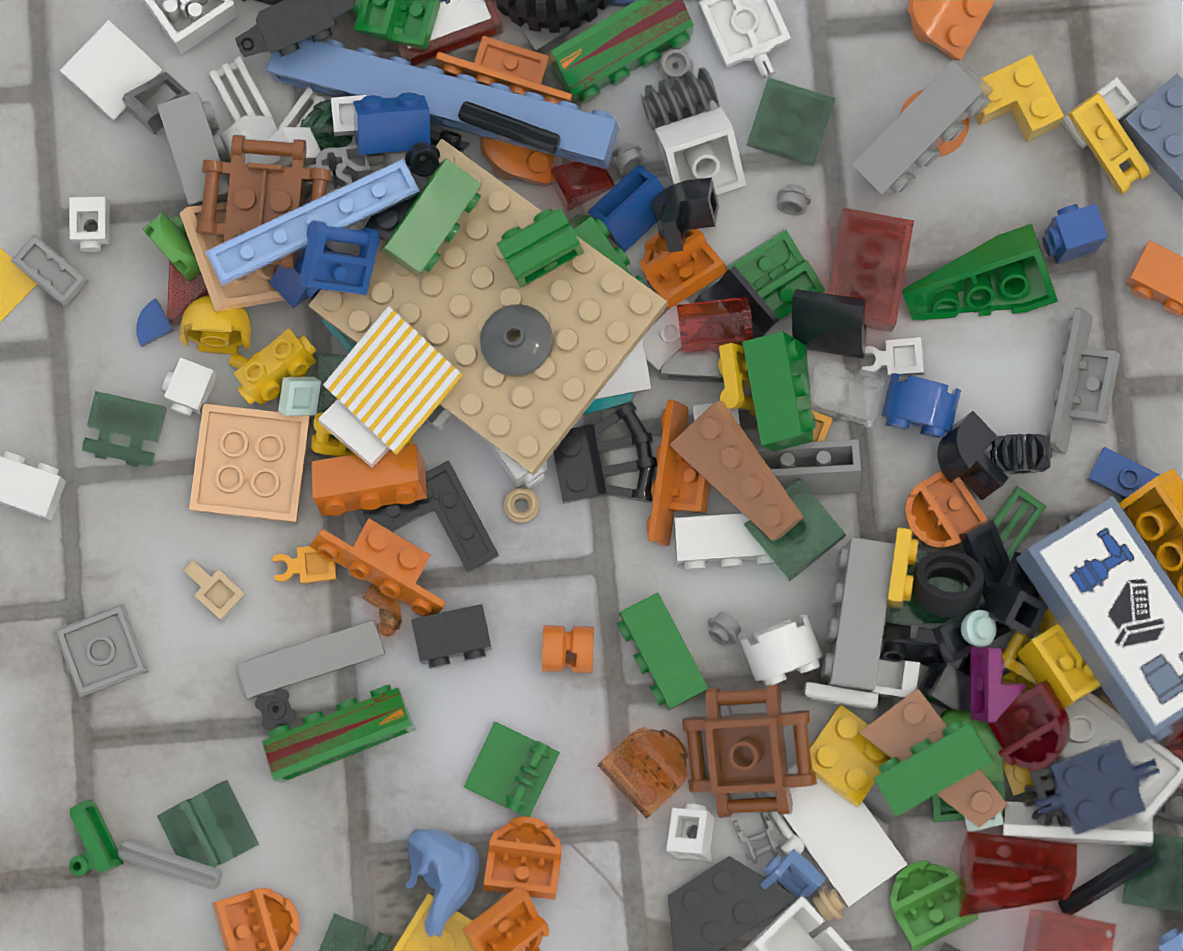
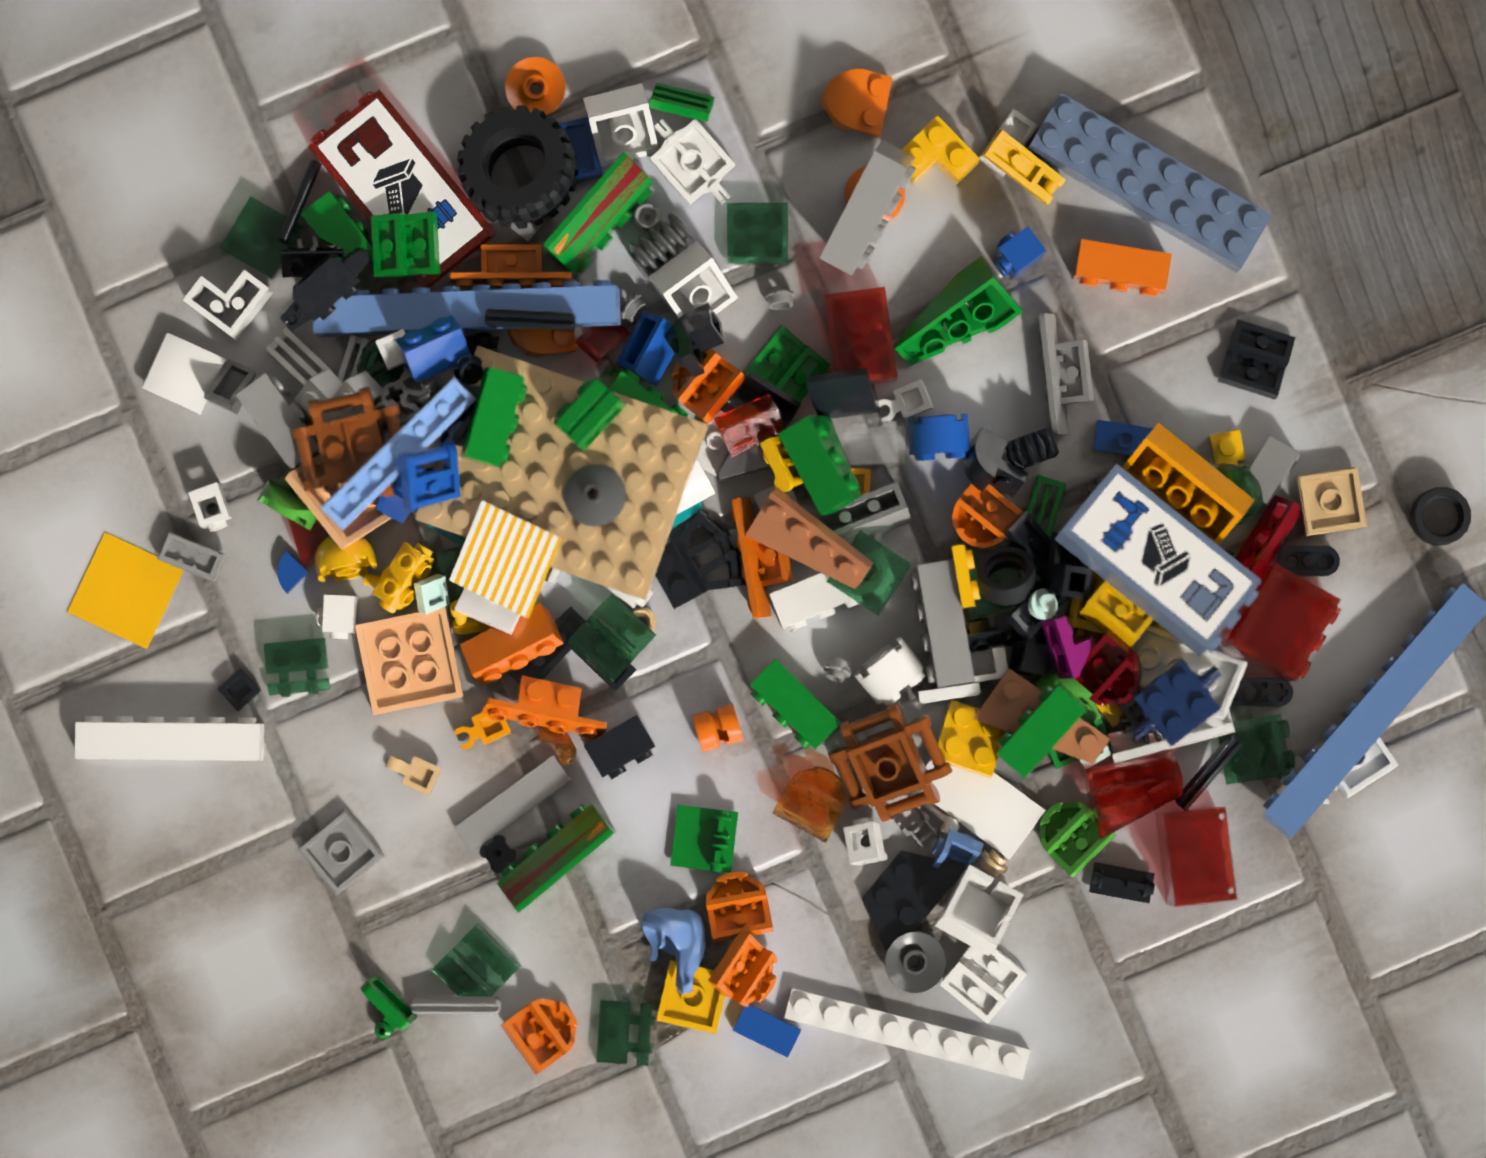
camera: 20 degrees left, 5 degrees up
(51, 434) = (239, 690): none -> black tile
(482, 510) = (611, 638): none -> clear green slope

